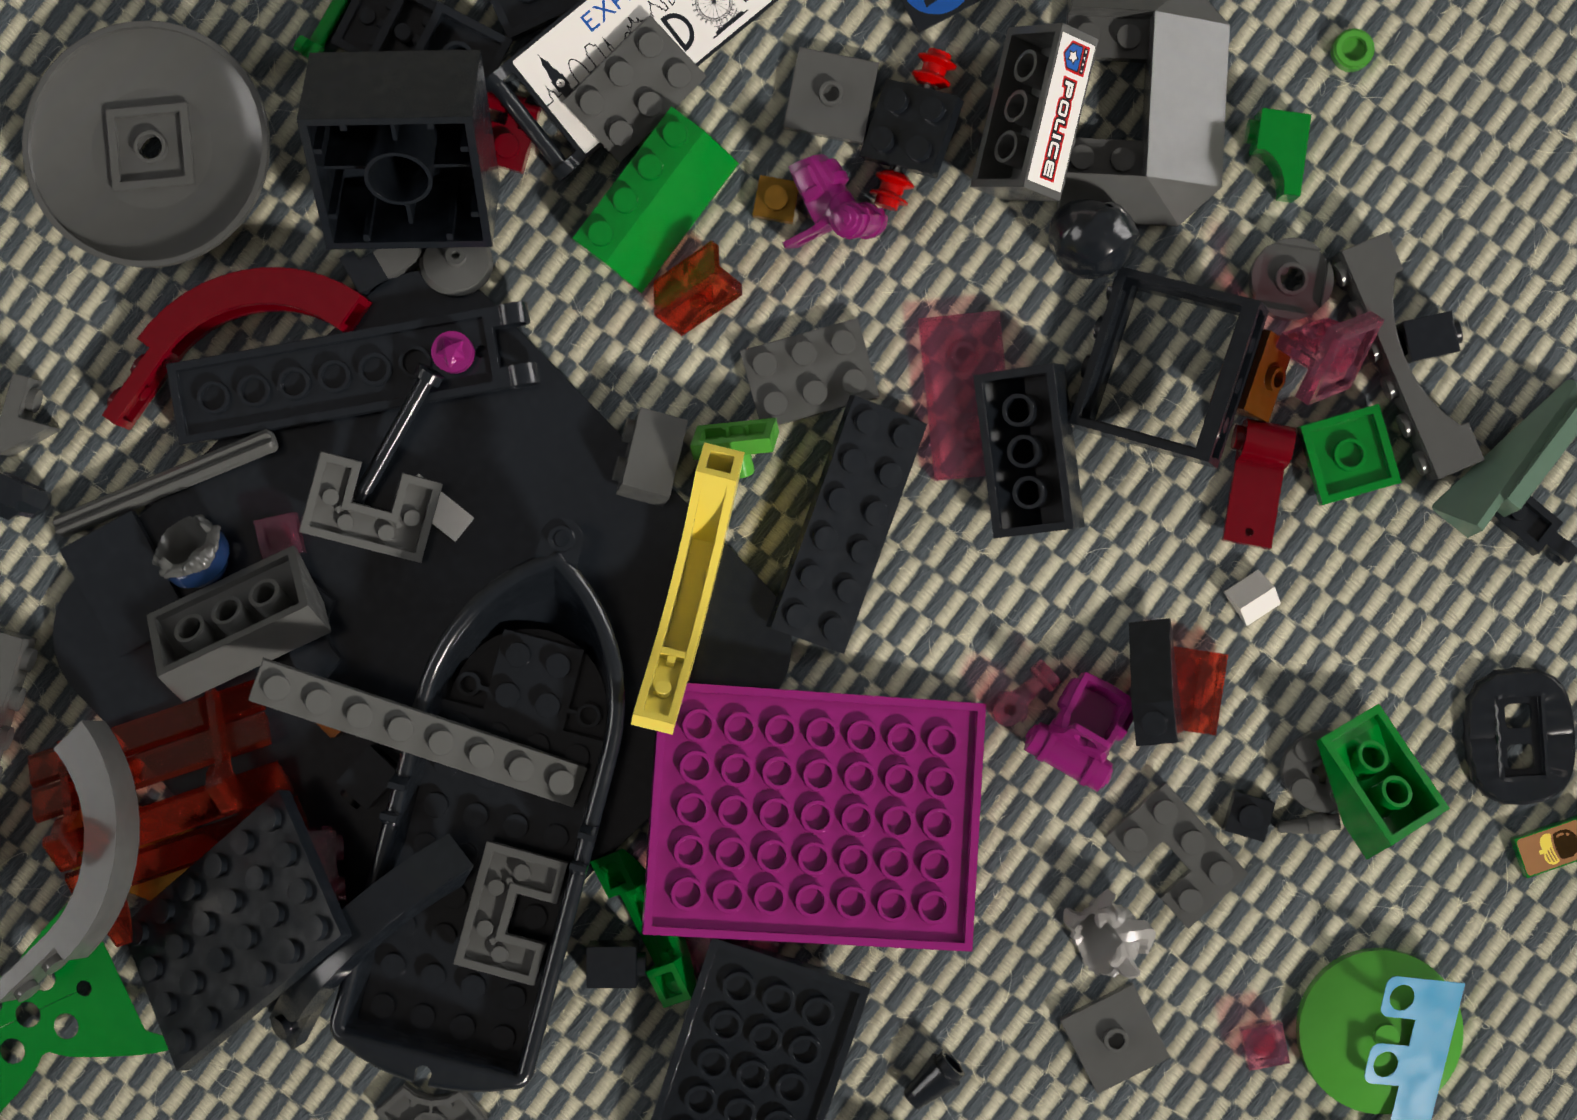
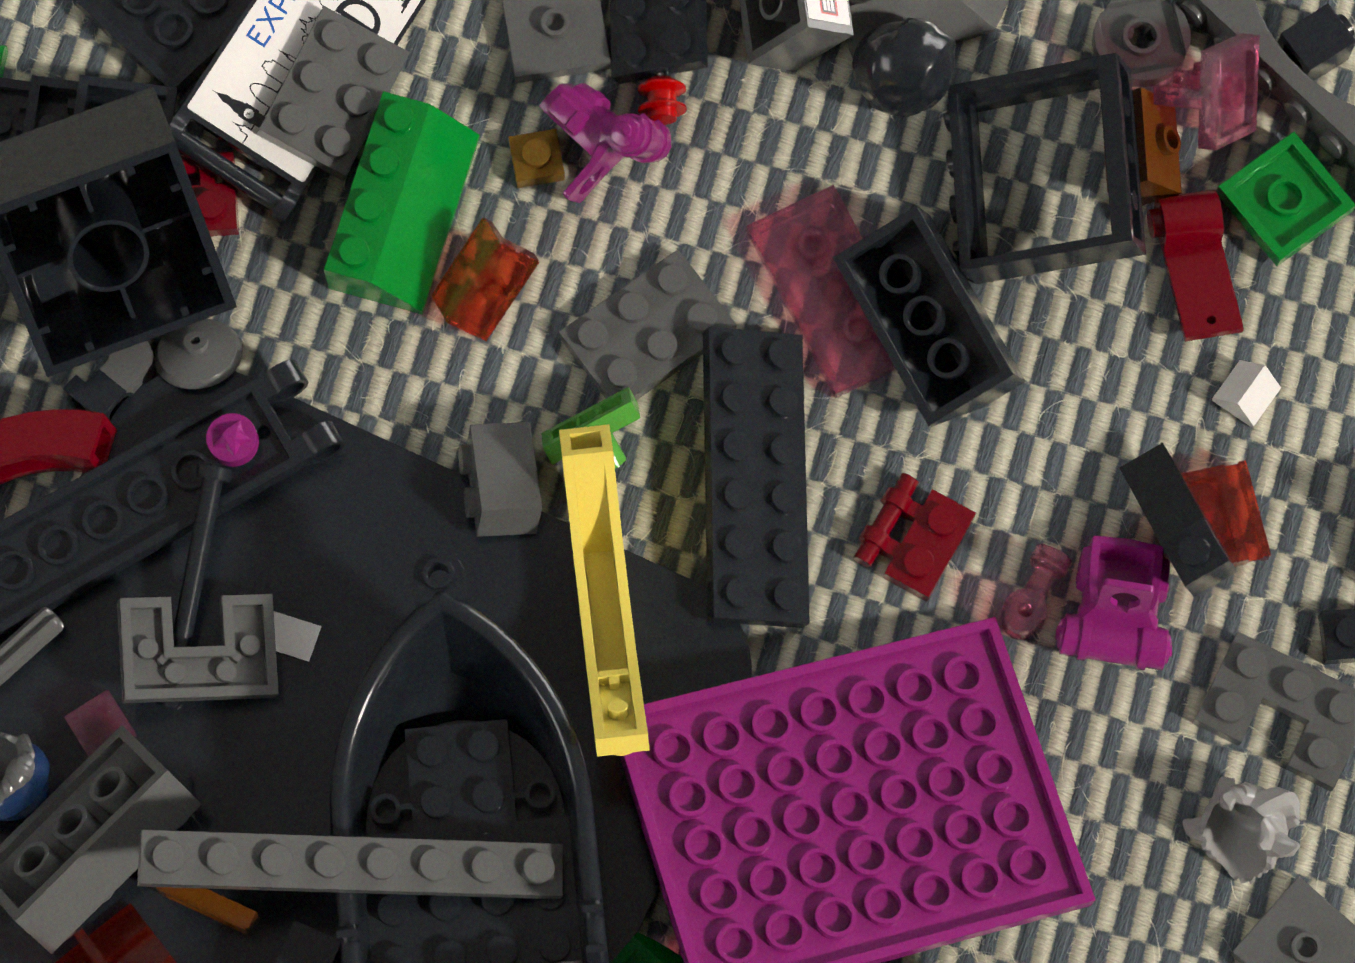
camera: 25 degrees left, 15 degrees down
(957, 626) = (928, 544): none -> dark red plate

